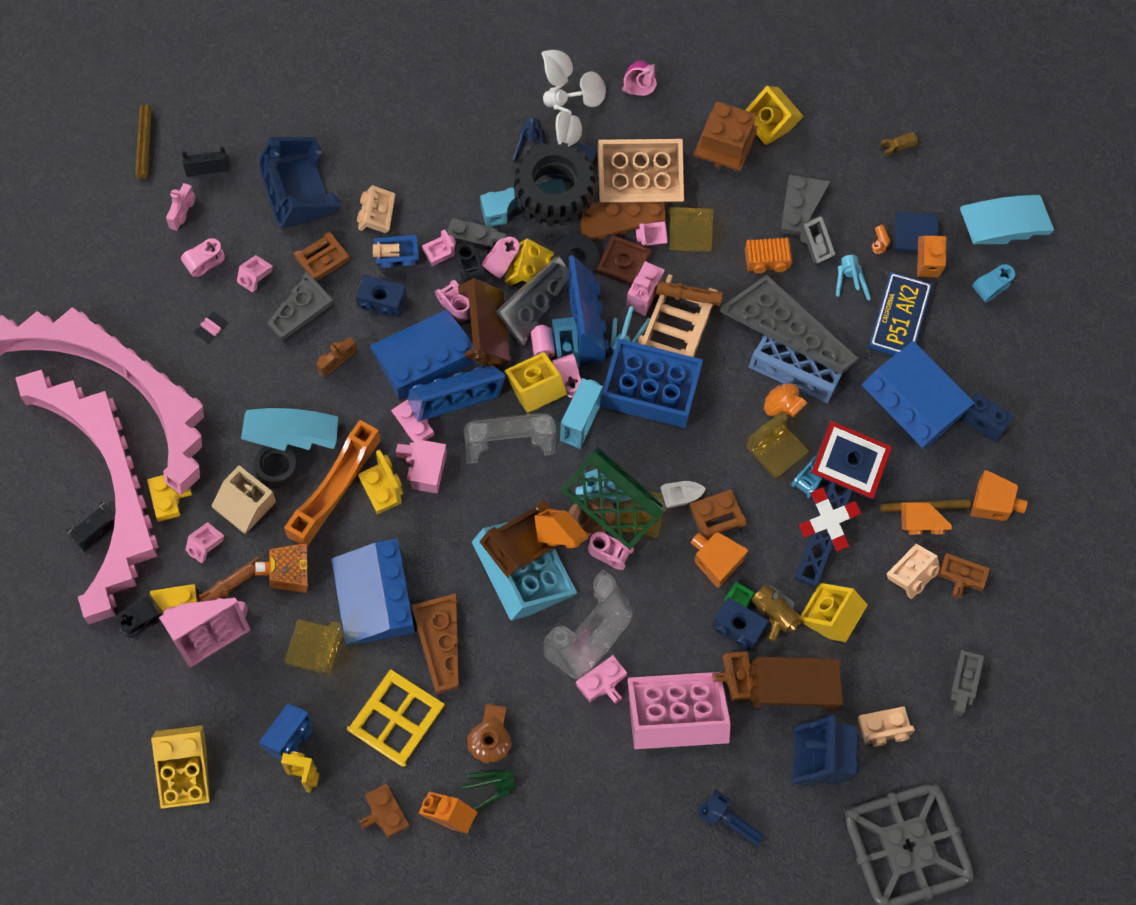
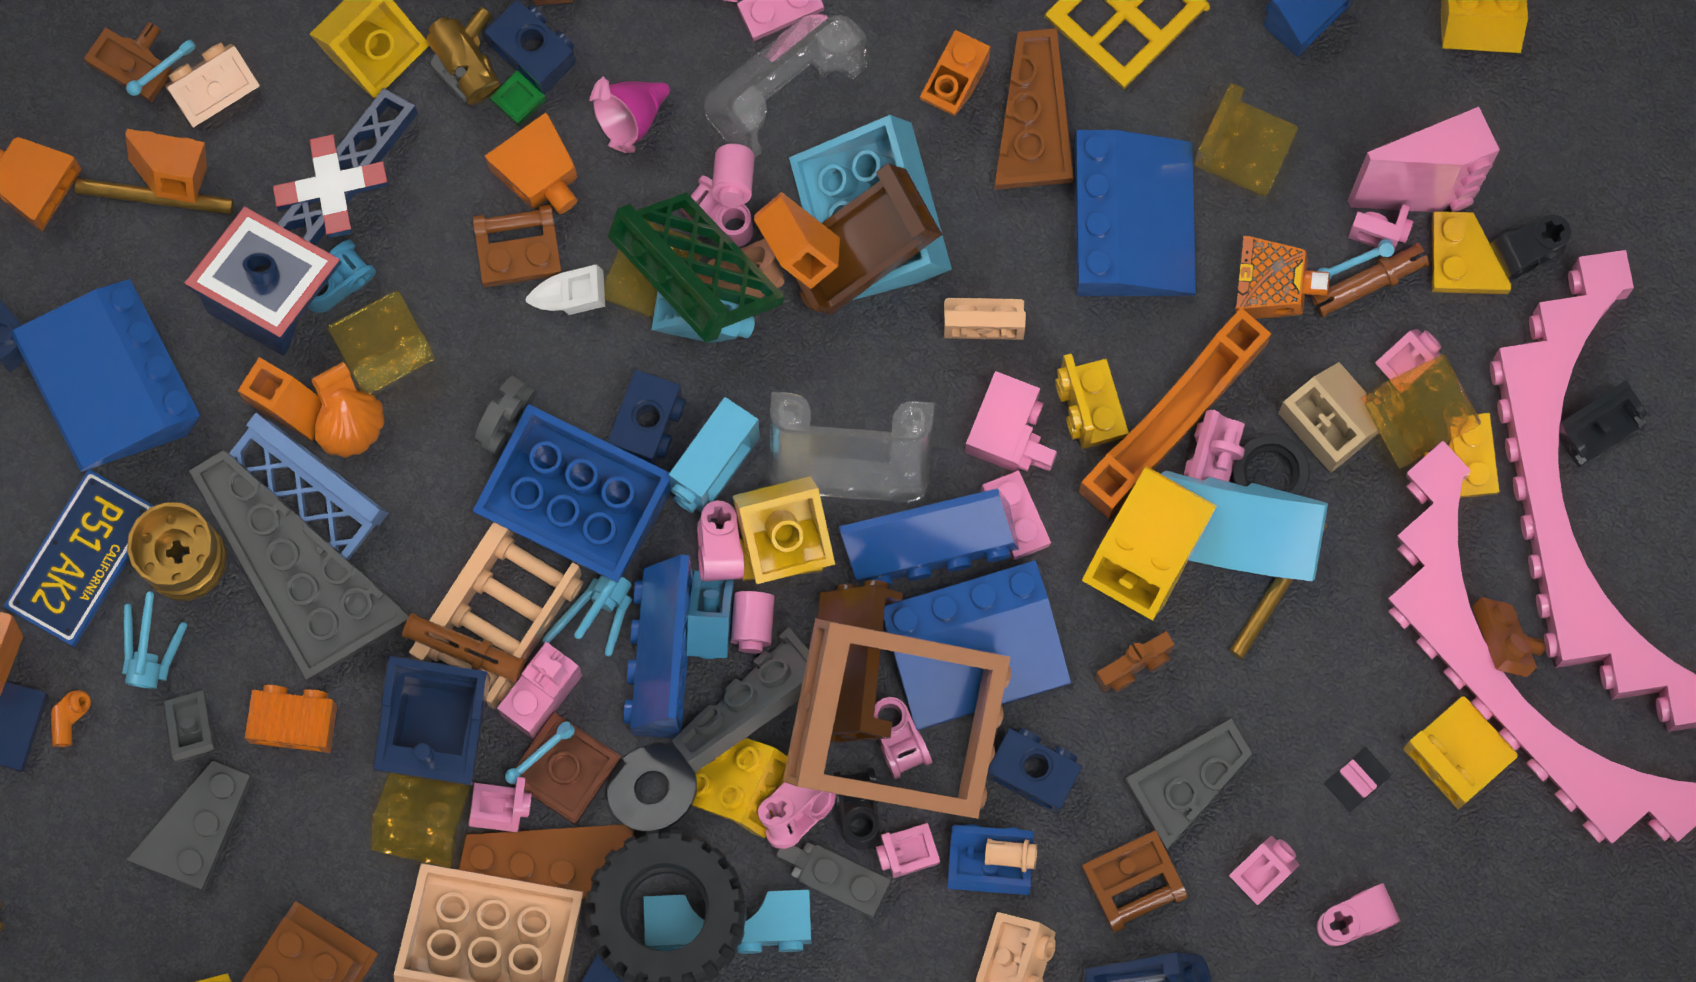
camera: 165 degrees left, 10 degrees up
(136, 399) = (1505, 640): none -> dark orange plate
(159, 341) = (1460, 752): none -> yellow bracket
(200, 508) = (1420, 410): none -> clear yellow bracket
(258, 582) = (1385, 249): none -> medium azure hinge
(269, 401) = (1260, 616): none -> pearl gold bar
(307, 468) = (1216, 447): none -> bright pink hips
(337, 406) = (1149, 543): none -> yellow slope
(448, 517) = (984, 318): none -> light nougat bracket
(490, 650) = (956, 73): none -> orange slope
(491, 311) = (819, 705): none -> nougat window
(605, 558) = (733, 175): none -> bright pink brick
(622, 445) = (645, 395): none -> dark blue brick
(628, 272) = (564, 731): none -> medium azure hinge
(673, 597) = (627, 110): none -> hat
(696, 257) = (431, 720): none -> dark blue piece
(699, 414) = (501, 416): none -> dark grey plate
(822, 405) = (281, 398): none -> orange slope
(851, 316) = (162, 536): none -> pearl gold wheel
(955, 556) = (135, 87): none -> medium azure hinge

